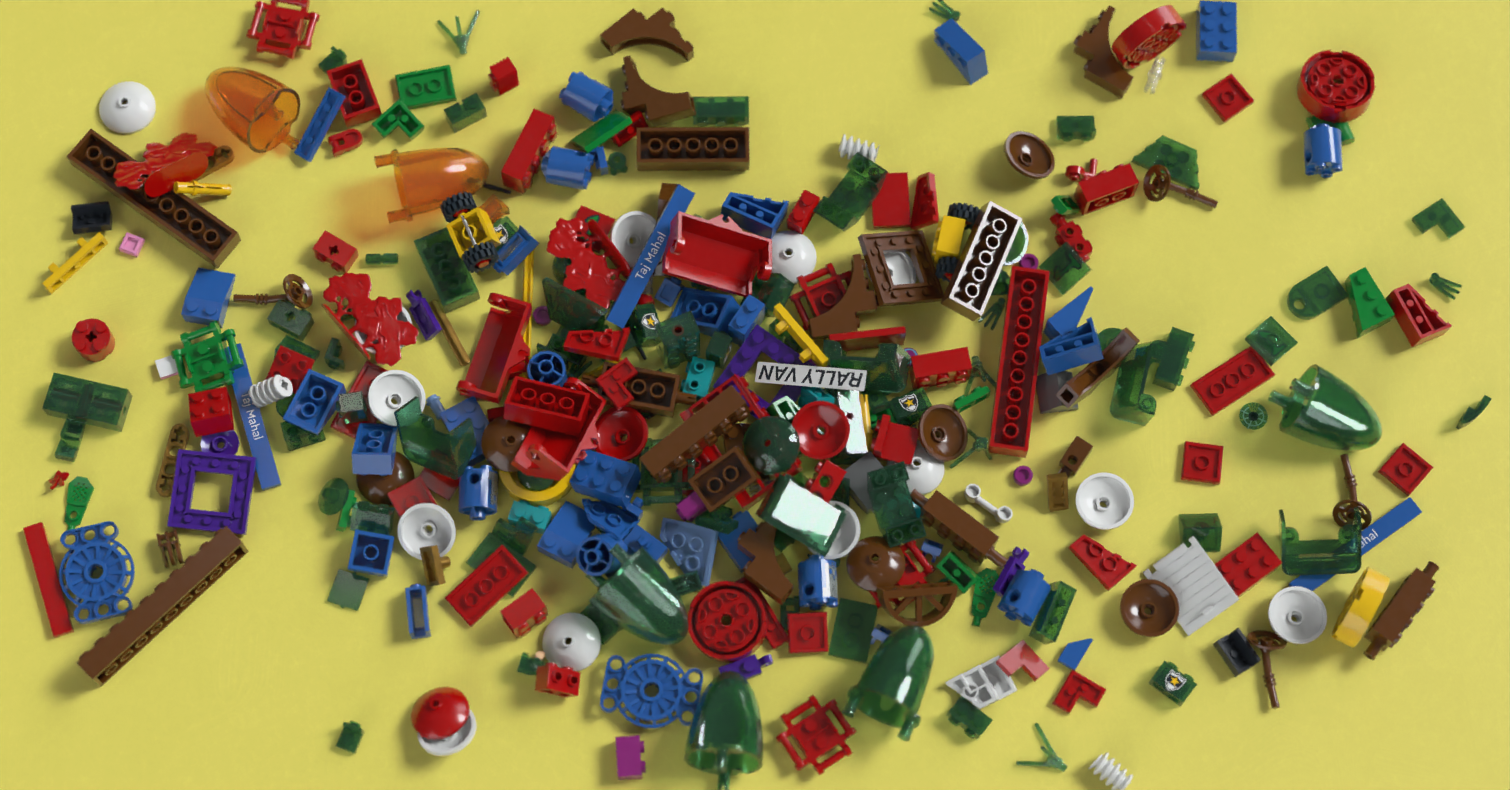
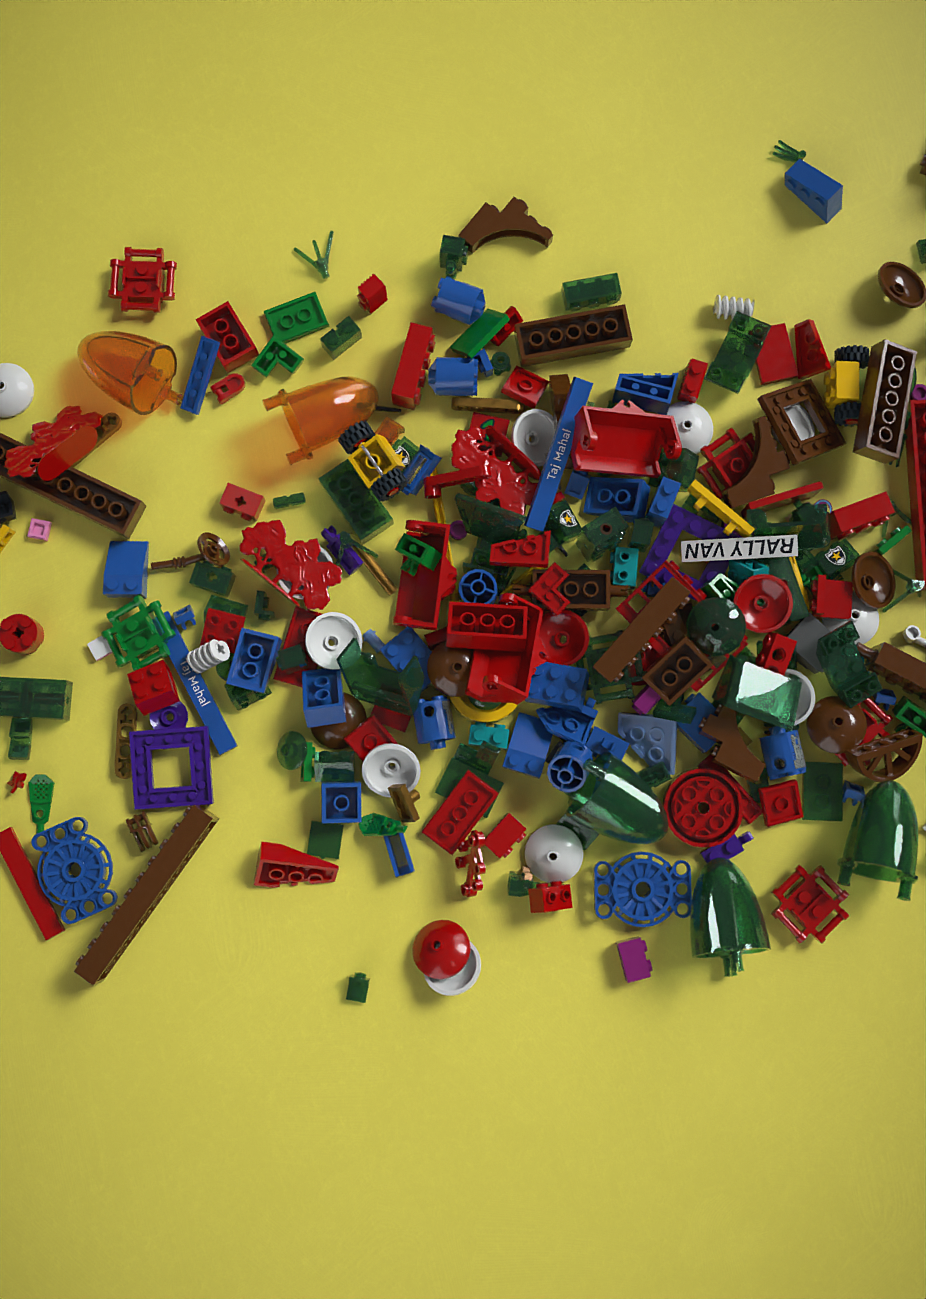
camera: 10 degrees left, 10 degrees up
(194, 188) = (96, 461): yellow pin -> none
(256, 349) = (183, 615): none -> blue tile
(306, 607) = (283, 865): none -> red wedge
(333, 60) = (199, 307): clear green bracket -> none
(404, 582) = (379, 825): none -> green piece
(428, 306) = (347, 542): none -> clear green plant
(487, 631) = (475, 841): none -> red plant
(495, 328) = (417, 553): none -> green brick
(527, 265) = (434, 483): none -> red beam
(590, 53) = (453, 255): none -> clear green brick
(595, 201) = (487, 405): none -> pearl gold beam
(636, 189) = (525, 387): none -> red tile
(658, 105) = (530, 297): reddish brown arch -> none

